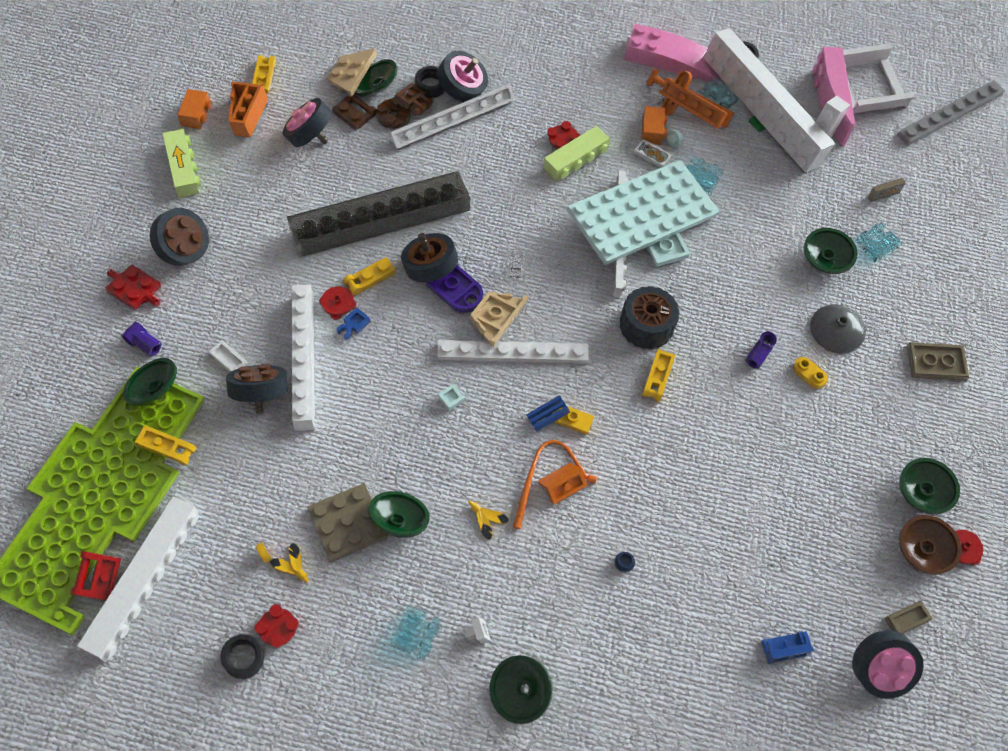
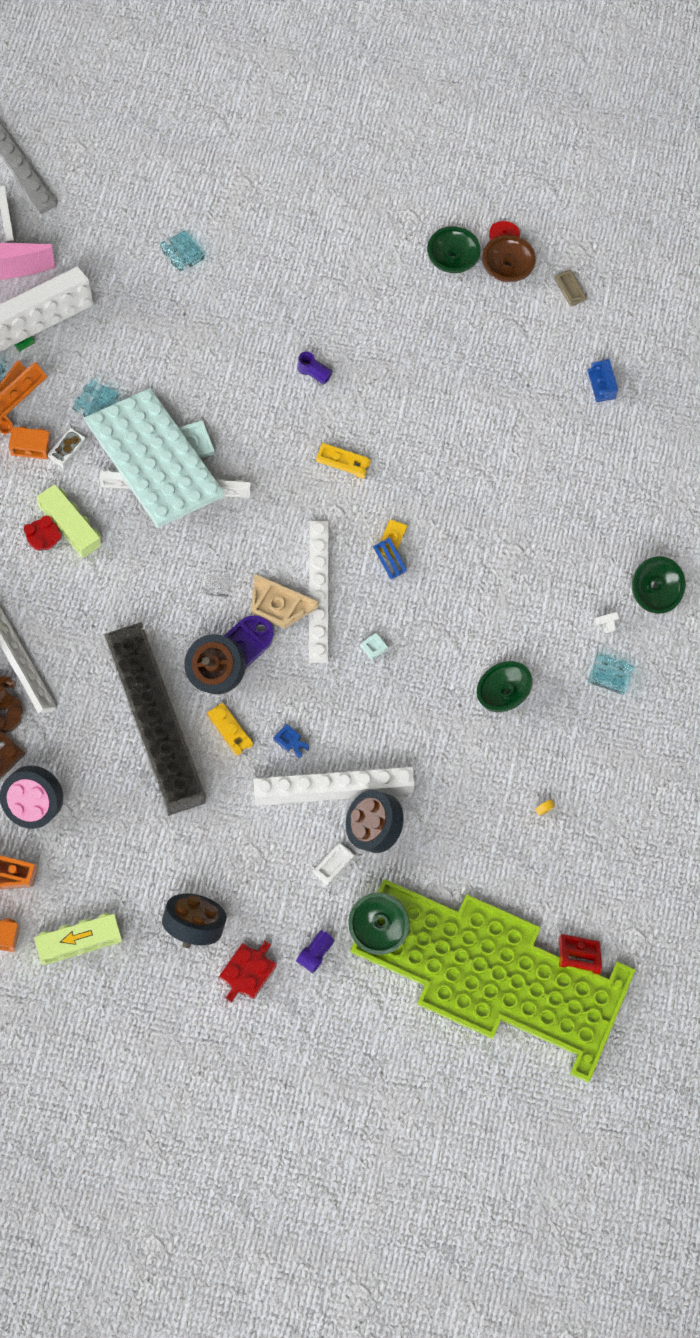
camera: 90 degrees left, 5 degrees up
(138, 580) = (577, 916): white brick -> none
(165, 445) = (443, 906): yellow plate -> none
(230, 645) = (651, 805): black tyre -> none
(277, 626) = (614, 790): red piece -> none
(293, 567) = (554, 781): yellow piece -> none
(337, 302) = (262, 759): red piece -> none
(345, 523) = (508, 738): dark tan plate -> none
(486, 515) = (496, 618): yellow piece -> none
(524, 497) = (477, 583): orange piece -> none
(563, 482) = (459, 549): orange panel -> none
(624, 561) = (534, 501): dark blue plate -> none
(649, 317) = (283, 461): black wheel -> none
(674, 138) = (47, 422): light aqua plate -> none
(810, 372) = (337, 331): yellow plate -> none
(832, 115) = (42, 263): white brick -> none
(832, 244) = (200, 285): dark green dish -> none
(835, 335) = (280, 308): dark grey dish -> none
(886, 189) = (119, 233): dark tan tile -> none
(887, 664) = (618, 305): wheel -> none
(938, 361) = (318, 223): dark tan tile -> none

